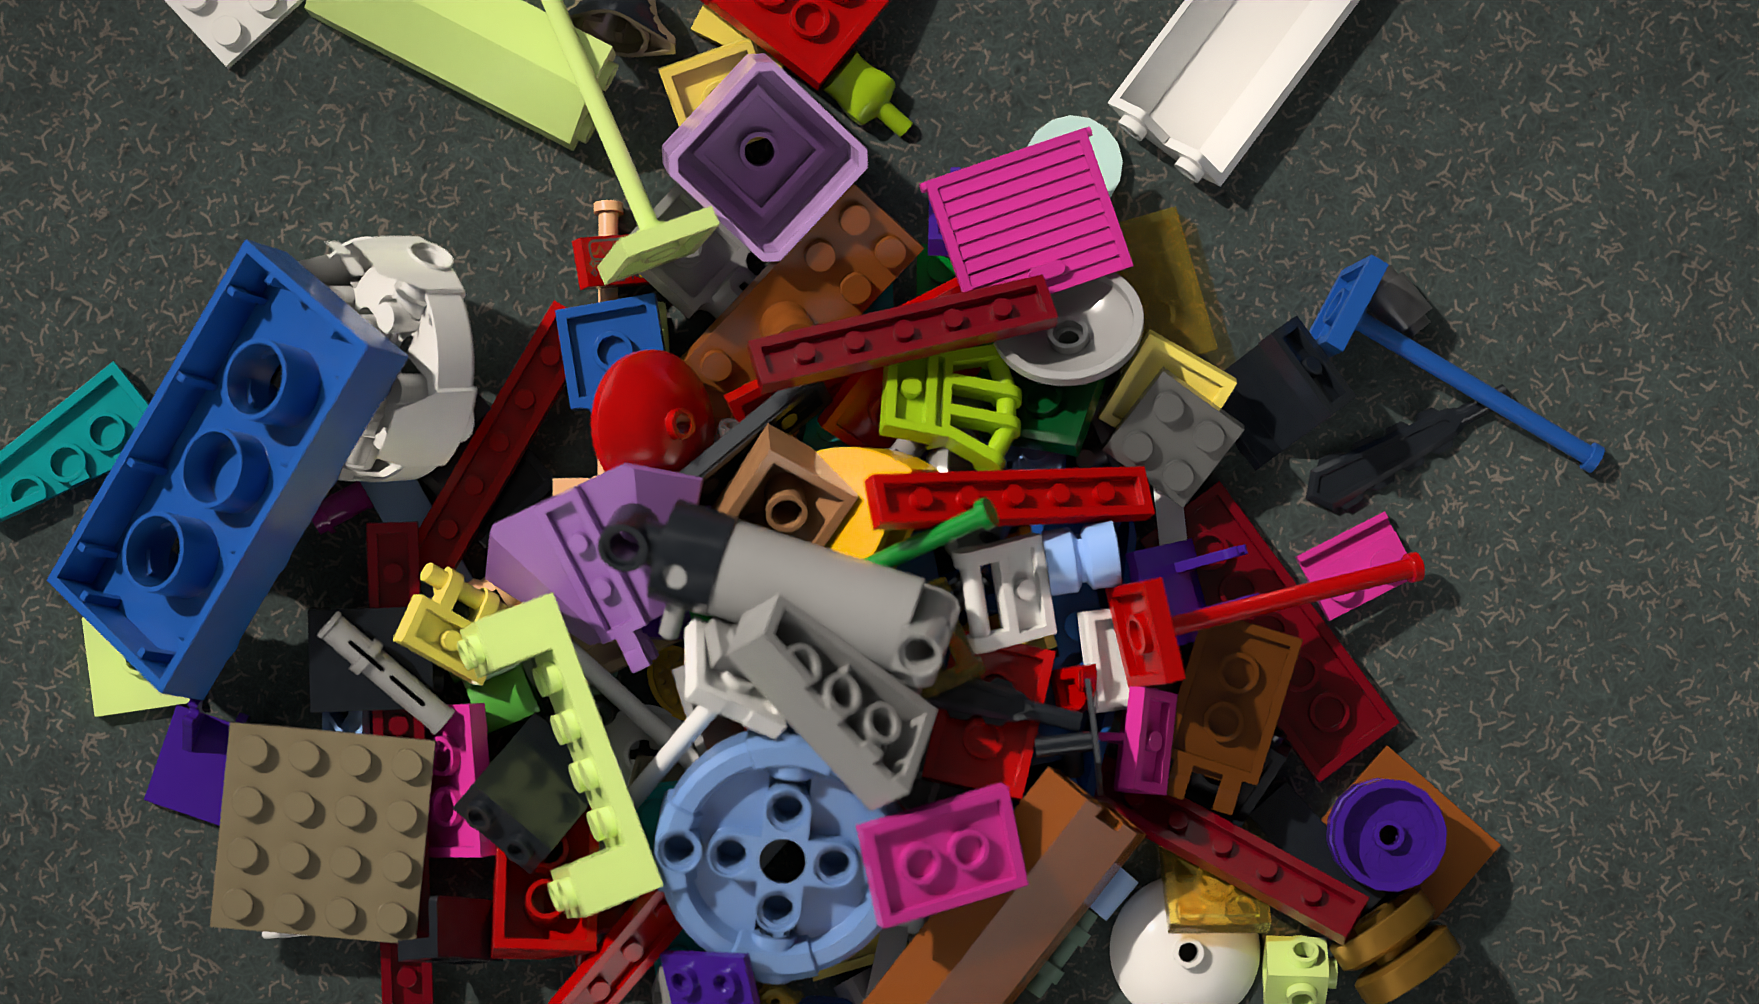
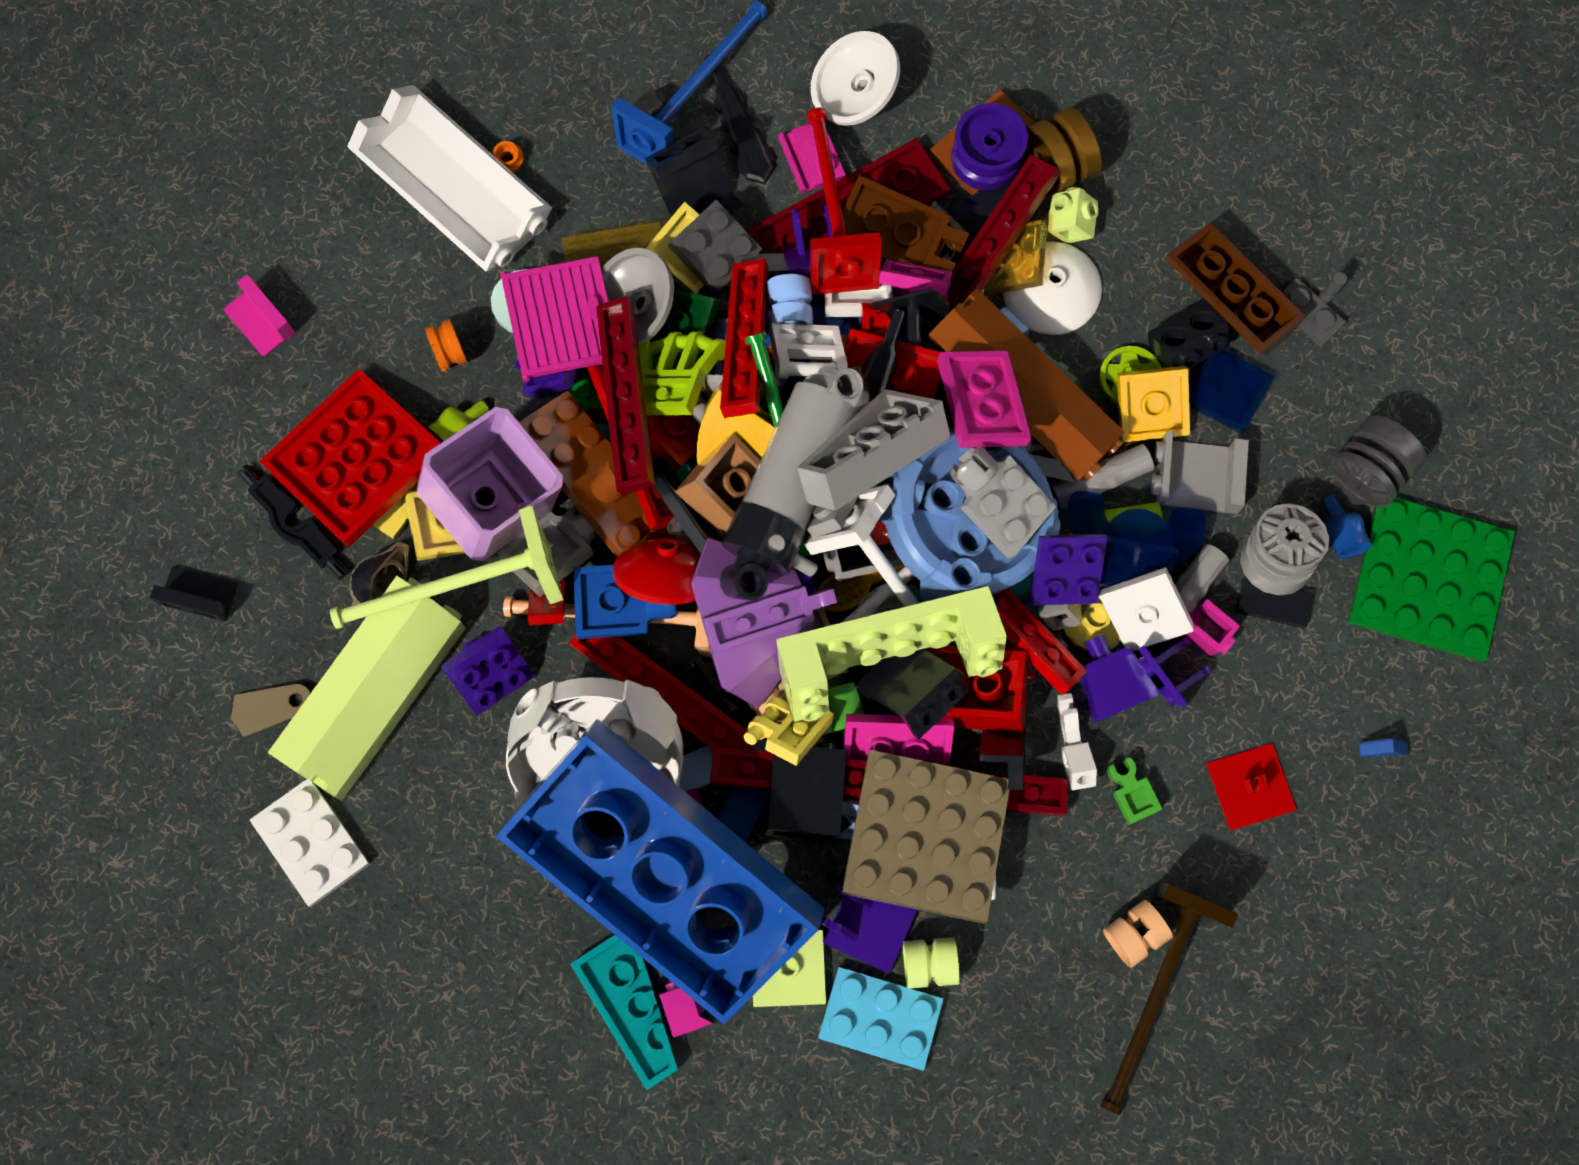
camera: 80 degrees left, 10 degrees down
(57, 521) = (682, 1011): none -> dark pink window
(83, 794) = (881, 1018): none -> medium azure plate
(160, 855) = (931, 962): none -> yellowish green wheel
(336, 568) = (743, 810): none -> blue plate
(339, 632) = (808, 785): light grey pin -> none
(505, 191) = (484, 665): none -> dark purple plate
(791, 893) = (1001, 499): none -> light grey plate
(985, 61) = (445, 345): none -> orange wheel
(1317, 108) = (505, 148): none -> orange plate
(1488, 597) = (848, 67): none -> white dish

